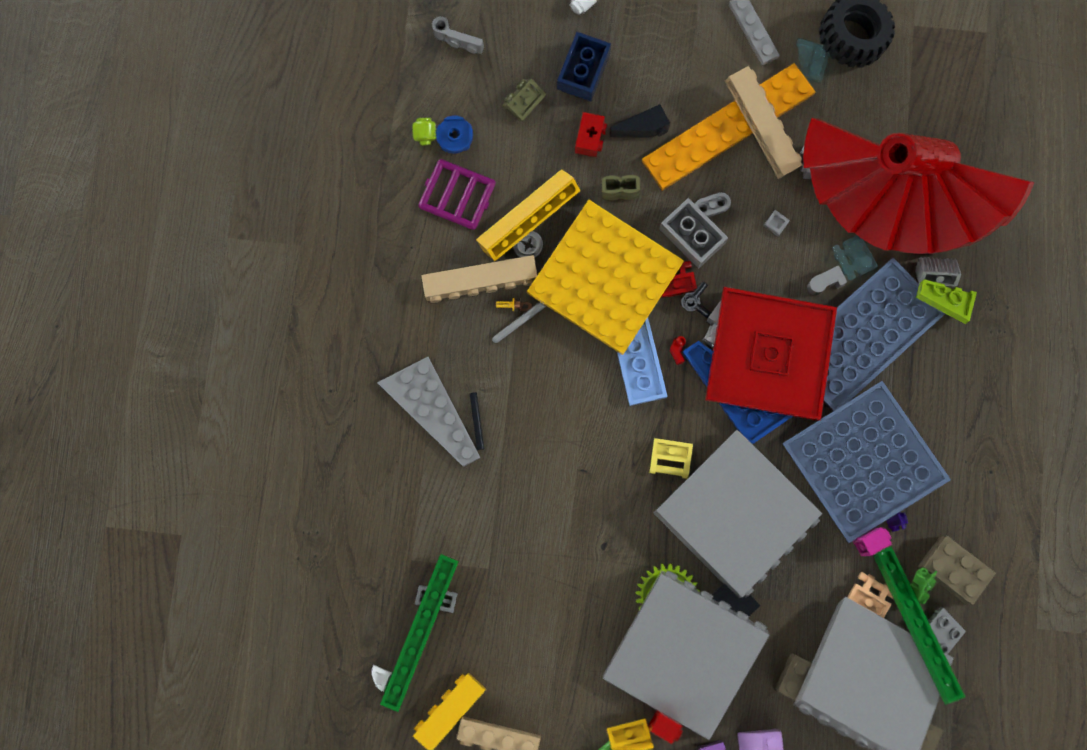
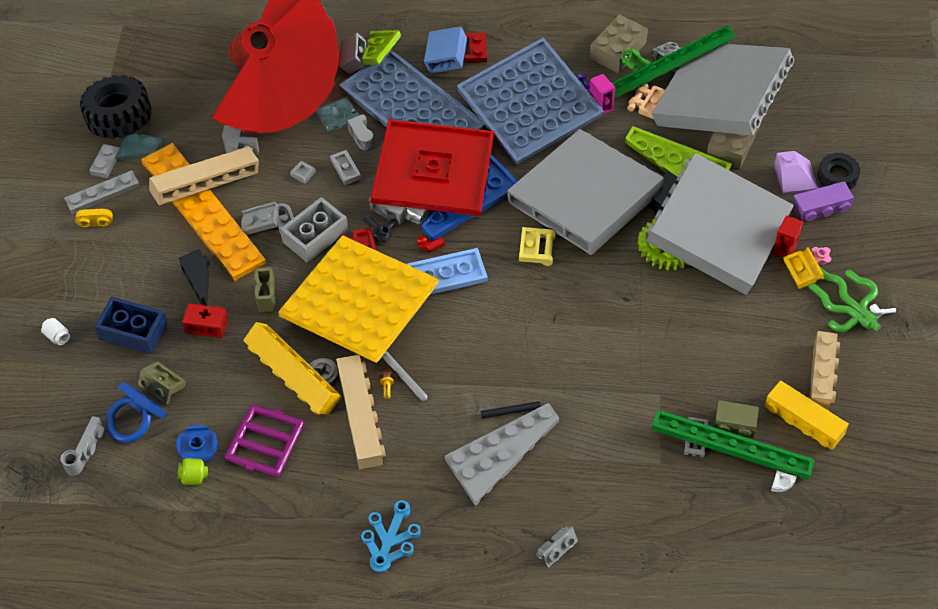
camera: 95 degrees left, 25 degrees down
(321, 448) = (562, 542): none -> light grey hinge
(346, 305) = (390, 539): none -> dark azure plant
(449, 640) = (736, 418): none -> olive brick
(495, 82) = (141, 404): none -> blue tile
(712, 181) = (260, 218): none -> light grey plate
(716, 16) = (93, 217): none -> yellow plate
(779, 265) = (345, 167): none -> light grey plate
(786, 617) = (665, 153): none -> lime wing
(794, 28) = (104, 161): none -> light grey plate
(943, 372) = (445, 50): none -> medium blue brick
(953, 408) = (477, 48): none -> red plate

